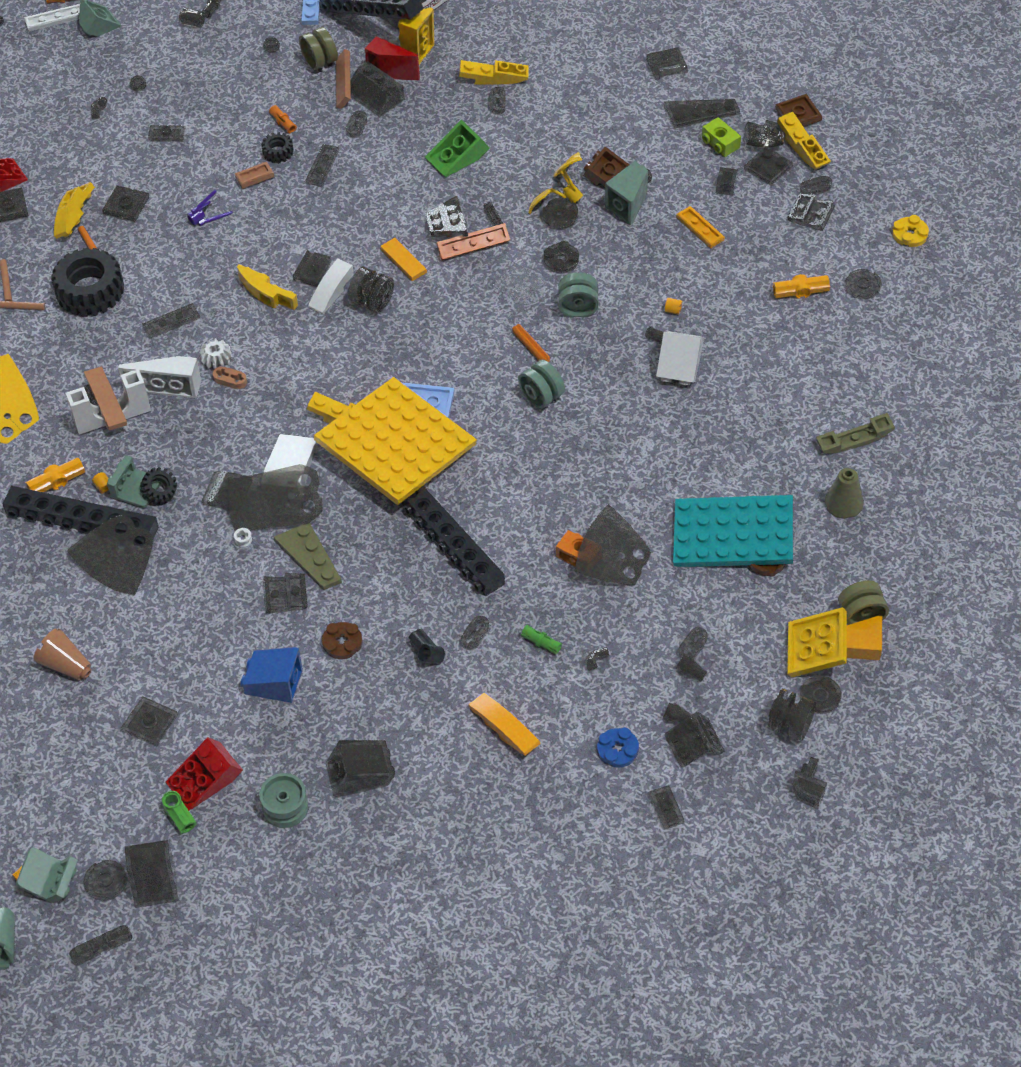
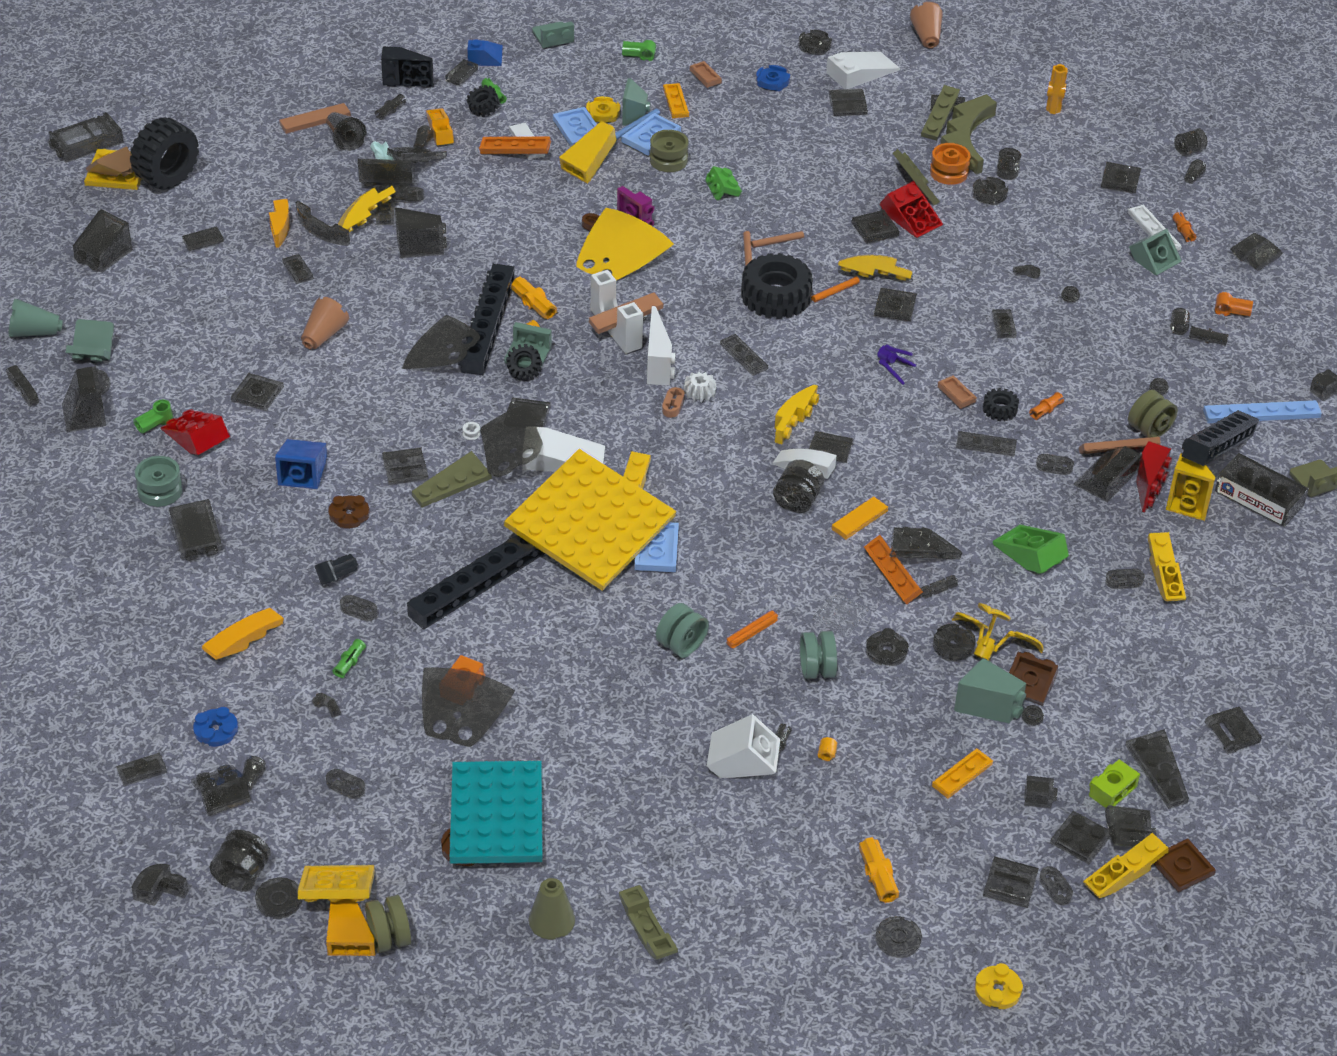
camera: 80 degrees right, 10 degrees down
(690, 668) = (312, 779): clear smoke cone -> none

